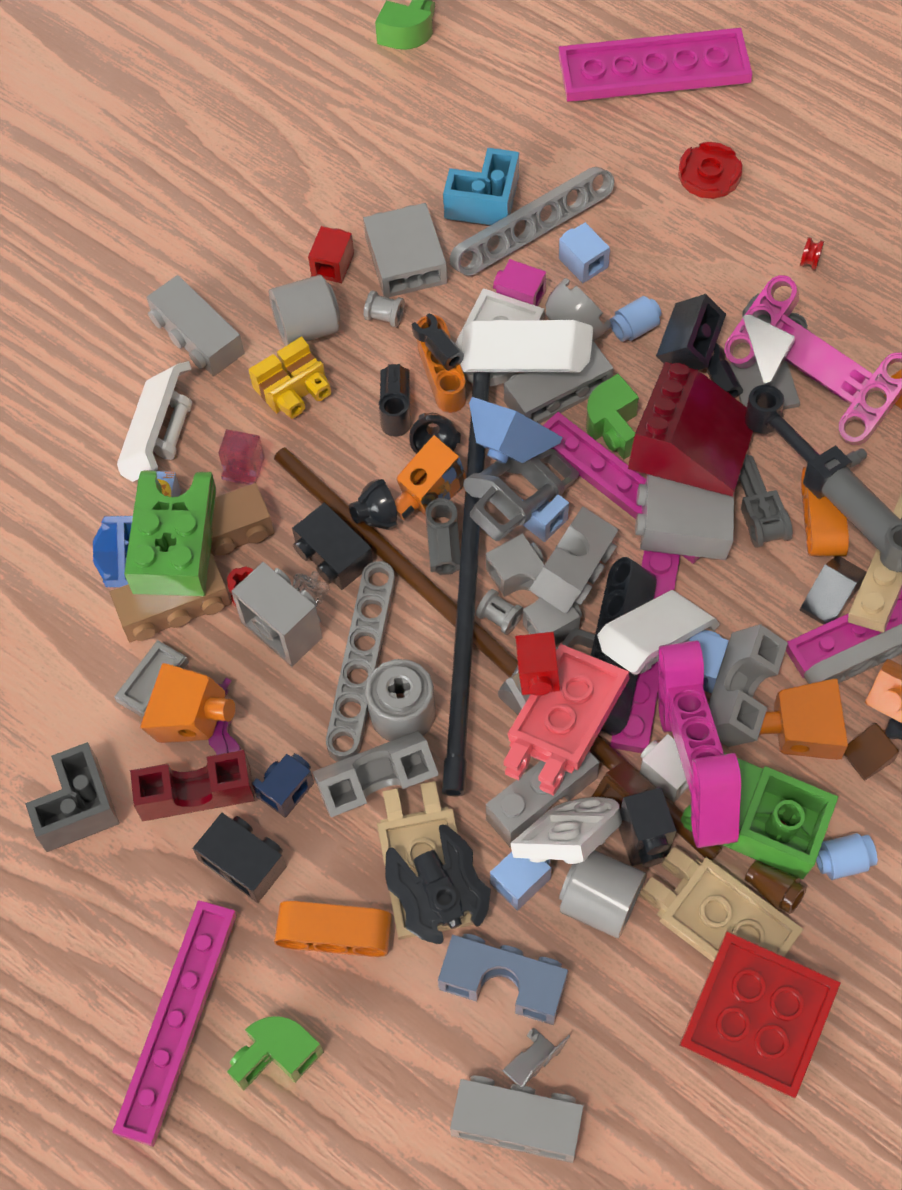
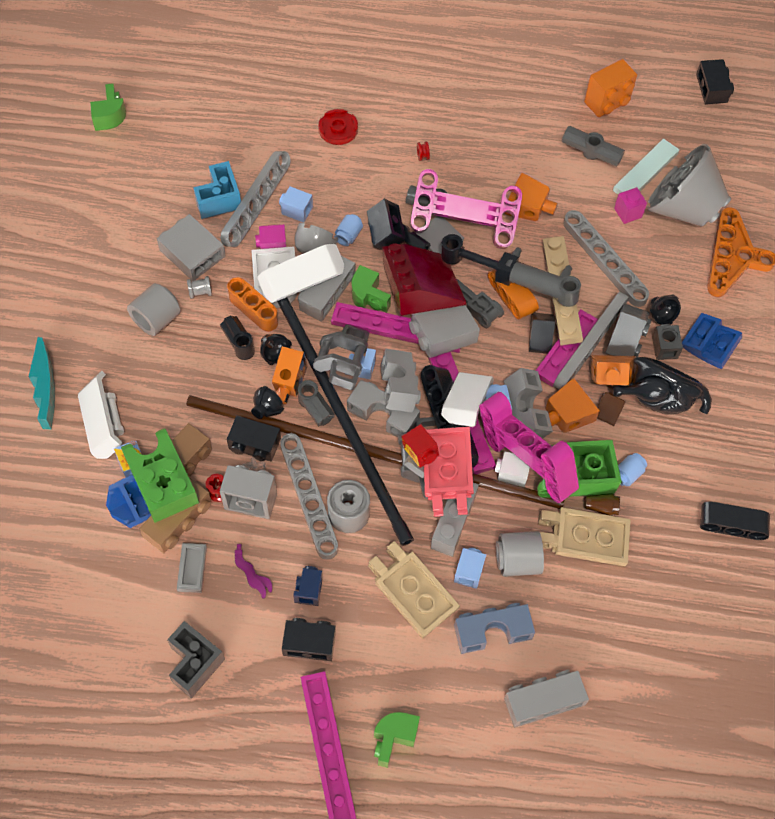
camera: 35 degrees left, 0 degrees up
(115, 337) = (43, 380): none -> teal slope
(167, 793) = (248, 624): dark red arch -> none
(185, 706) = (226, 571): orange torso -> none
(194, 326) = (89, 348): light grey brick -> none
(241, 457) = (167, 412): clear pink brick -> none
(289, 378) = (167, 351): yellow hips -> none
(331, 254) = (147, 268): red brick -> none
(333, 928) = (385, 651): orange beam -> none
(393, 763) = (346, 565): light grey arch -> none
(438, 343) = (248, 292): black bar -> none
(440, 891) = (433, 598): black piece -> none
(499, 611) = (371, 429): light grey bush -> none
(509, 432) = (322, 325): medium blue slope -> none
(531, 1061) = (533, 667): light grey piece -> none
(569, 831) = (485, 529): white plate -> none
(620, 783) = (494, 496): reddish brown slope -> none
(646, 827) = (523, 507): black brick -> none
(654, 64) = (270, 78): dark pink plate -> none
(760, 1014) = (636, 574): red plate -> none
(769, 346) = (438, 213): slope -> none

